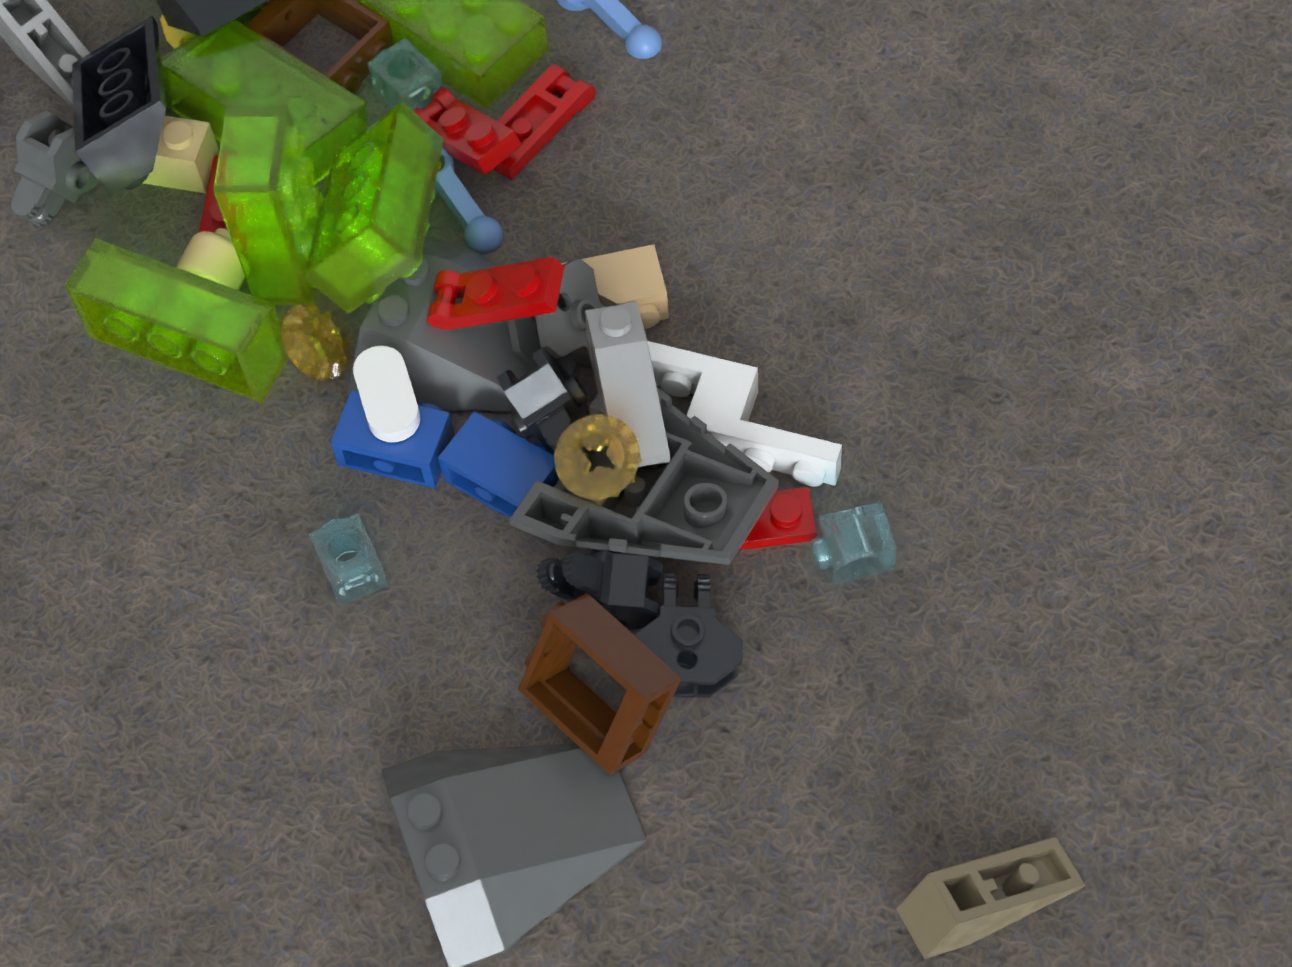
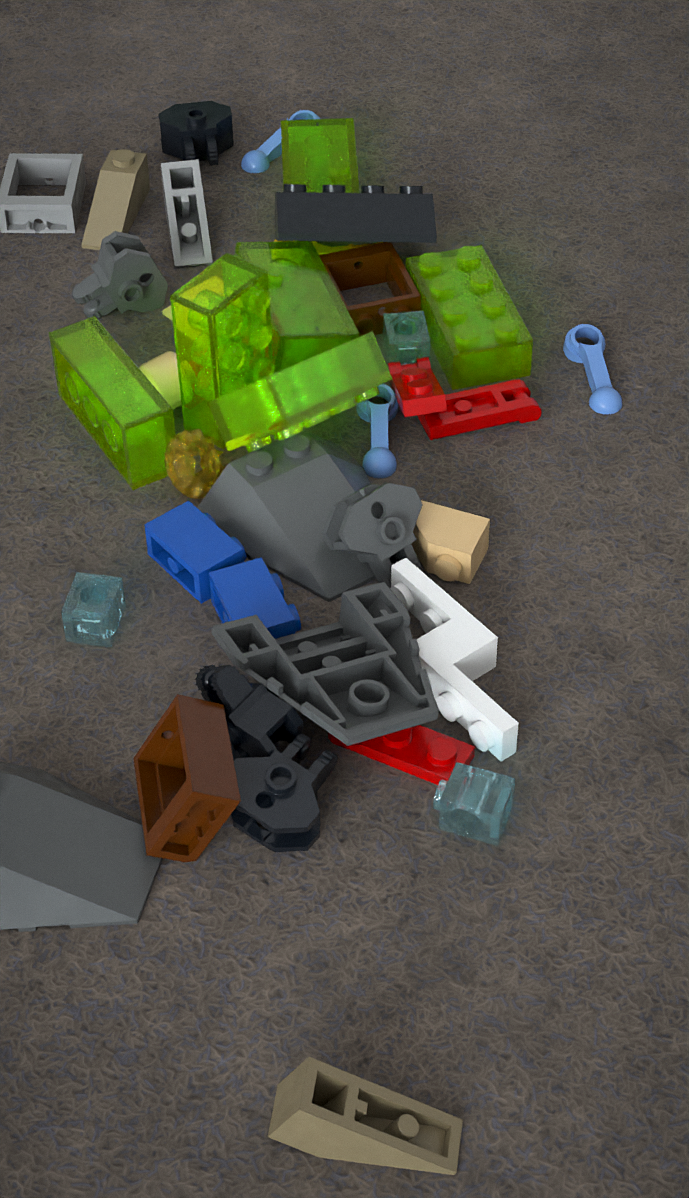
camera: 30 degrees right, 15 degrees down
(120, 107) = (174, 259): black slope -> none
(386, 394) = (207, 512): white tile -> none
(496, 294) = (333, 480): red plate -> none
(545, 400) = (315, 575): black hinge -> none
(596, 433) = (287, 614): clear yellow gear -> none
(626, 376) = (376, 585): light grey slope -> none

